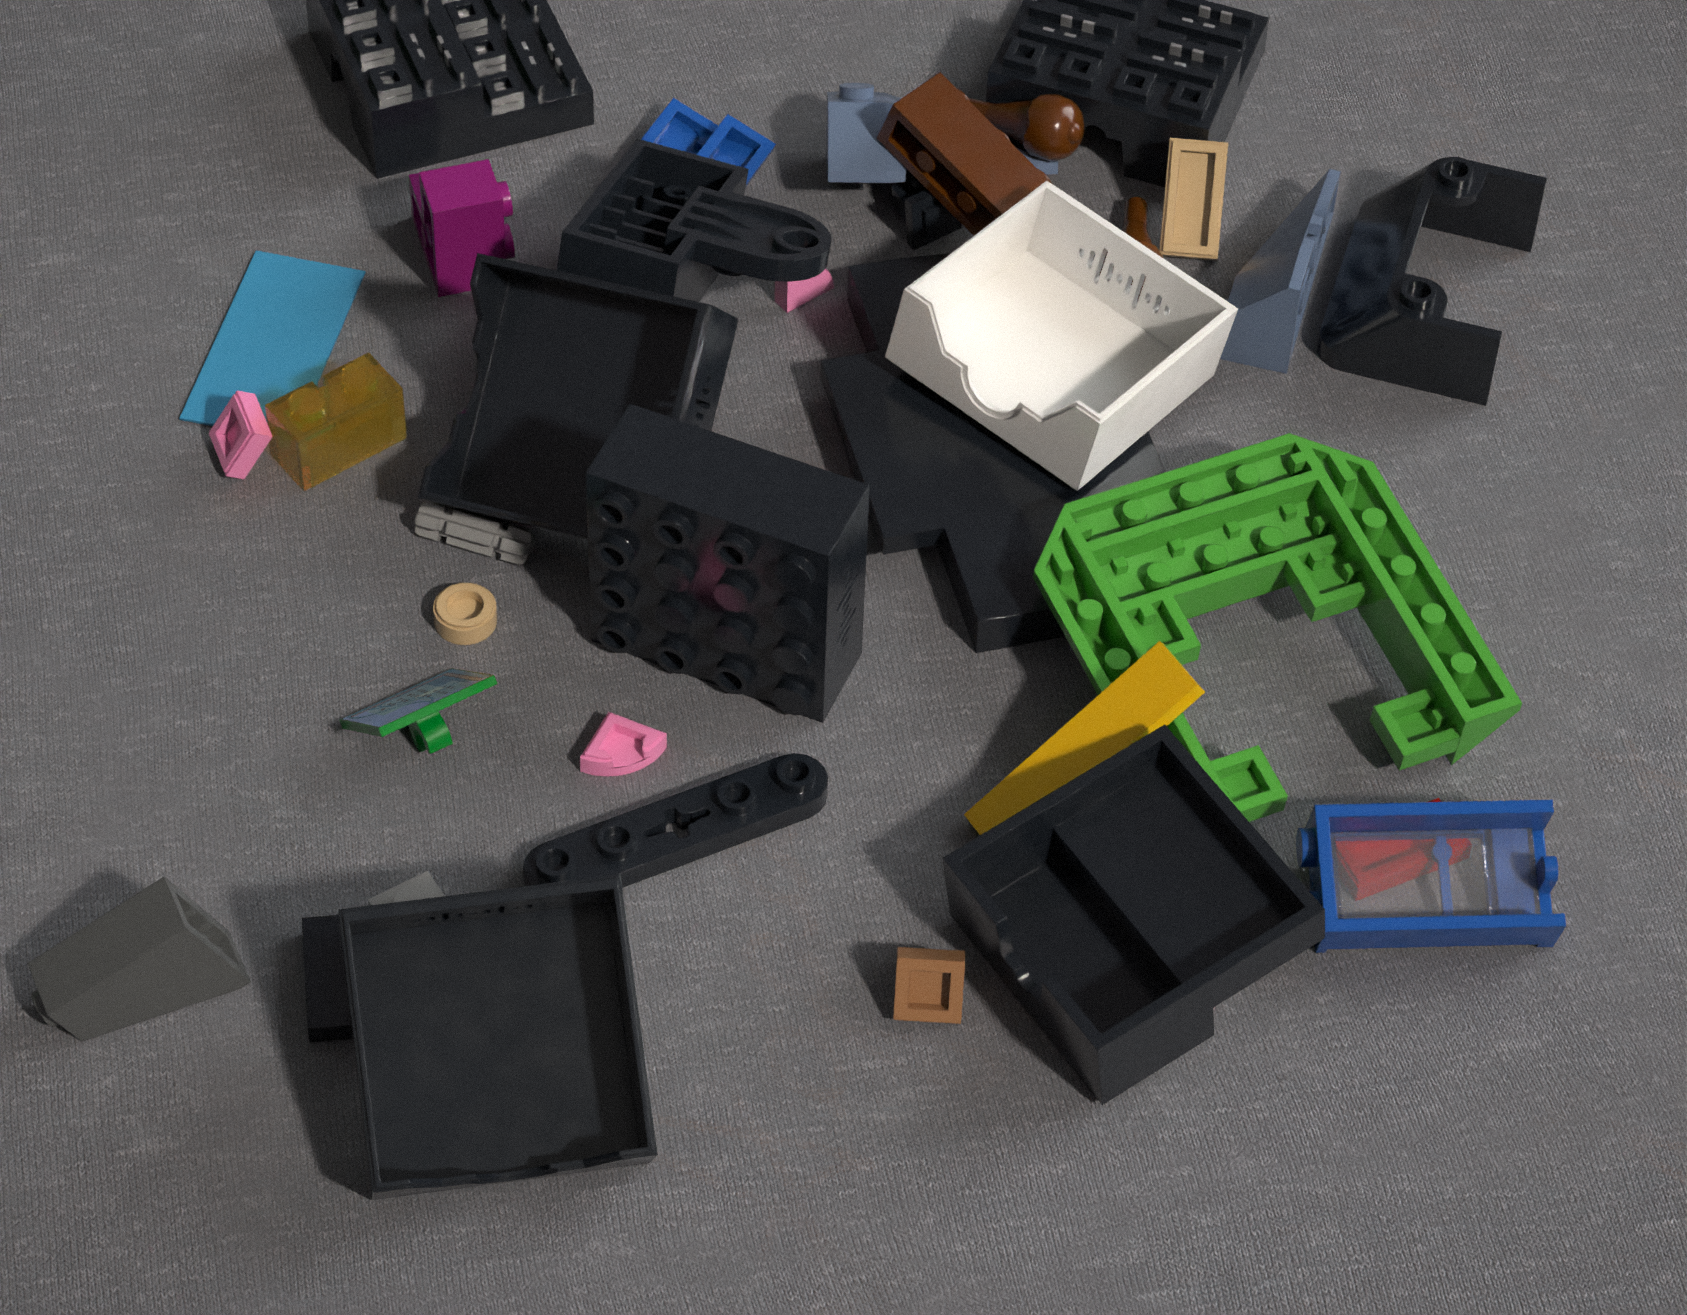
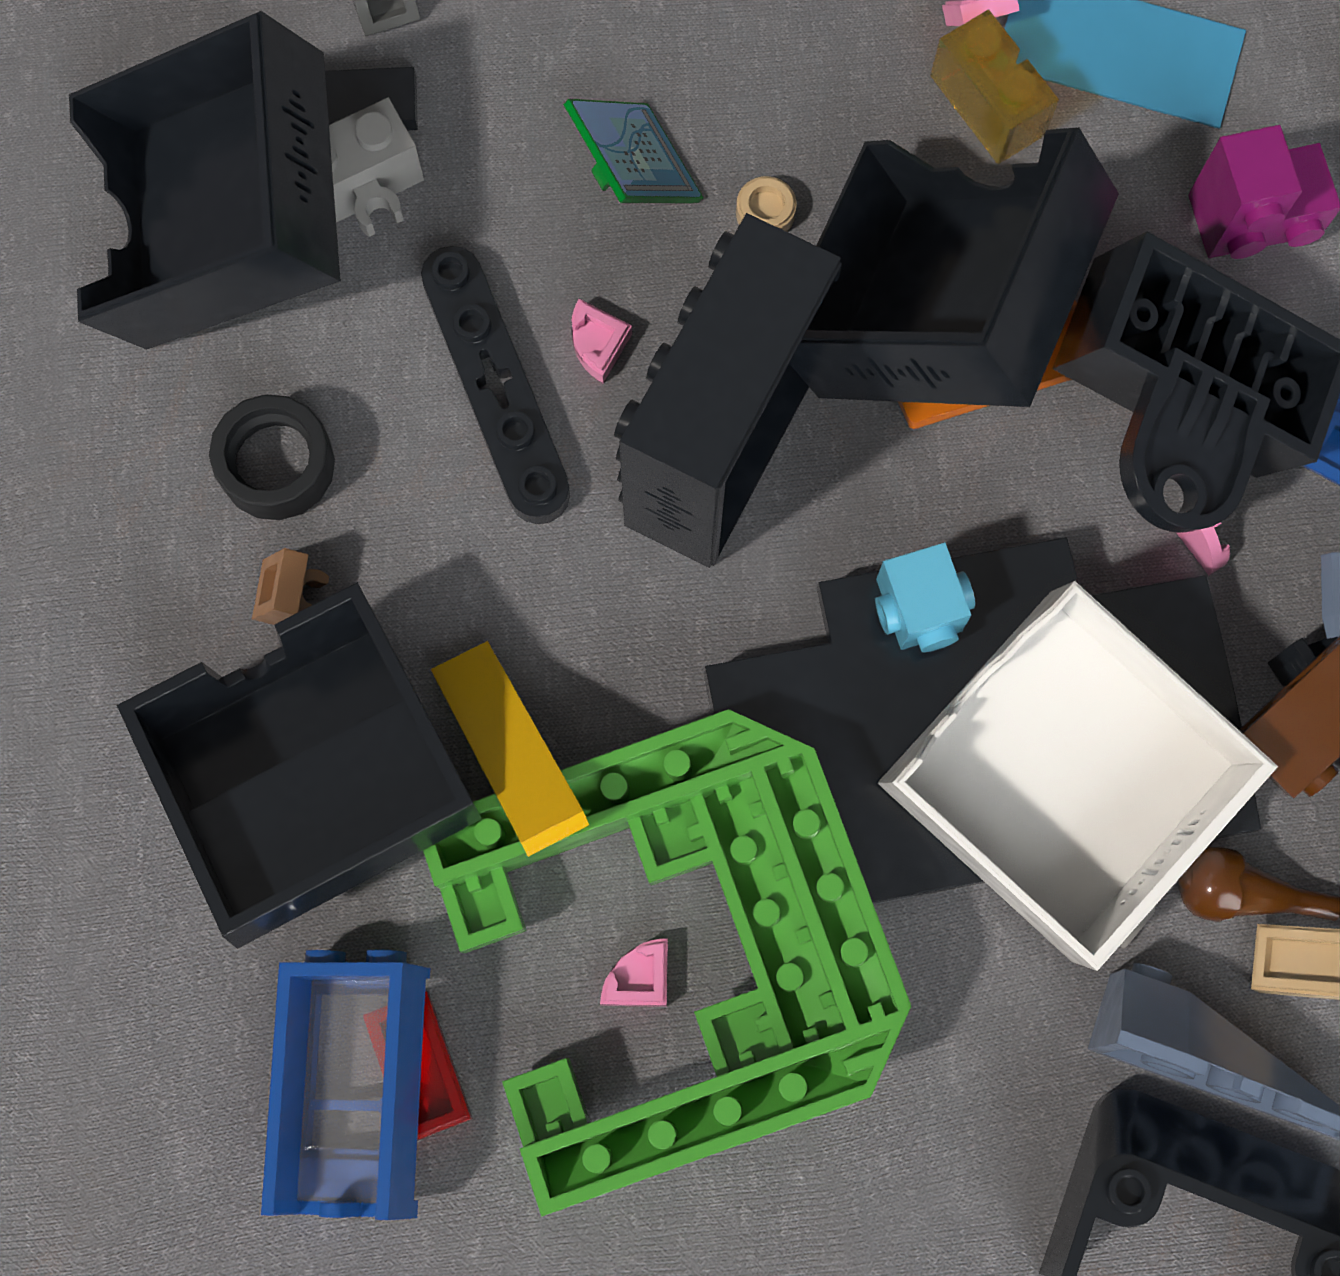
camera: 95 degrees right, 25 degrees up
(781, 966) = (262, 413): none -> black tyre
(902, 443) = (924, 599): none -> medium azure brick
(1279, 684) = (639, 977): none -> bright pink tile

